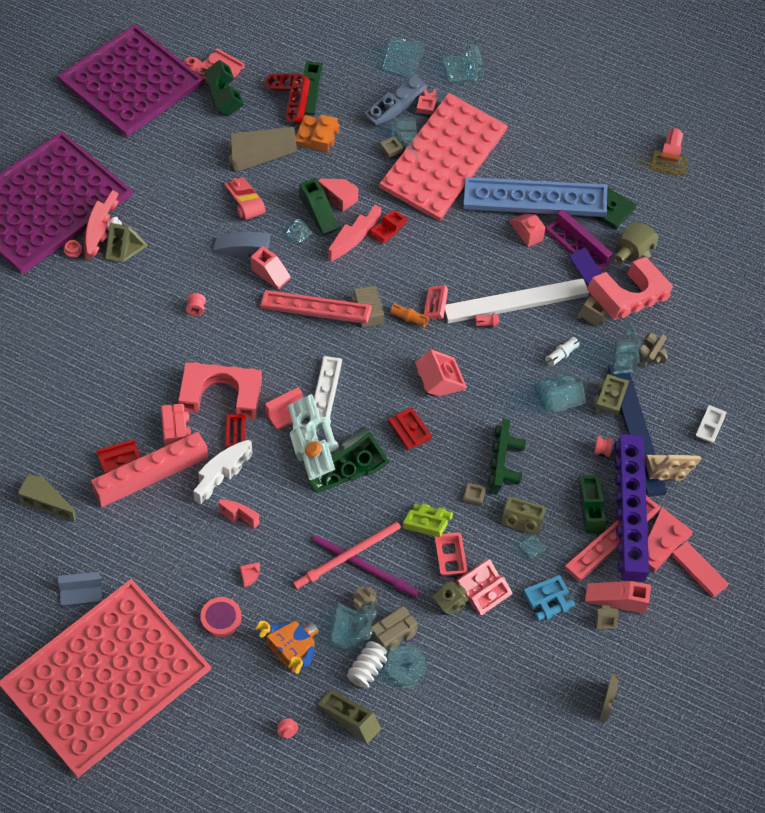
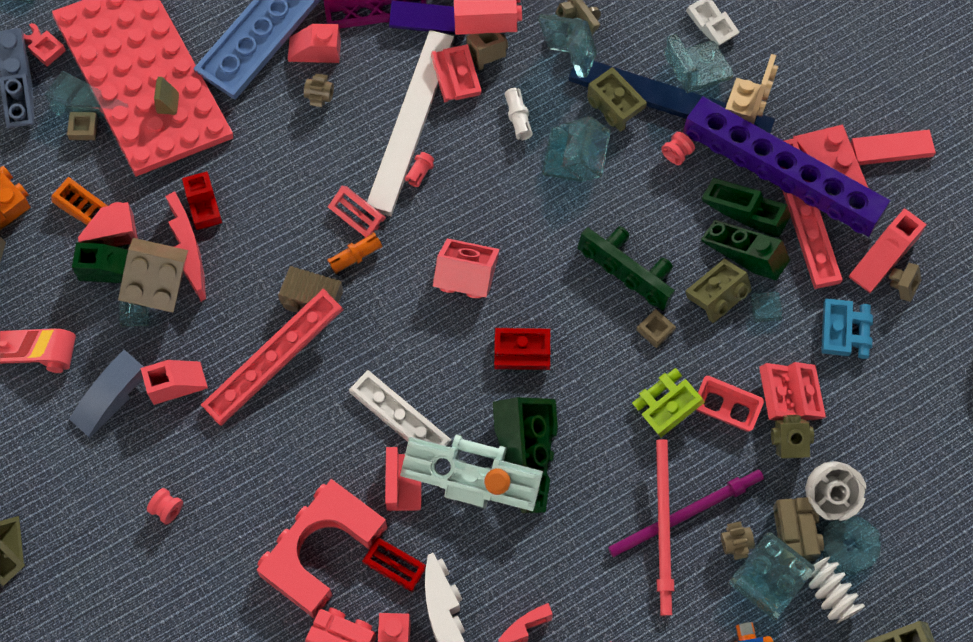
camera: 55 degrees left, 10 degrees up
(321, 221) = (152, 275): none -> dark tan brick
(345, 160) = (62, 192): none -> orange slope
(430, 634) = (835, 490): none -> white cylinder
(434, 171) = (165, 97): none -> olive slope
(498, 243) = (318, 90): none -> dark tan gear
(562, 517) = (750, 249): none -> dark green slope
(563, 305) = (456, 73): none -> coral plate
(668, 428) = (697, 65): none -> clear light blue bracket

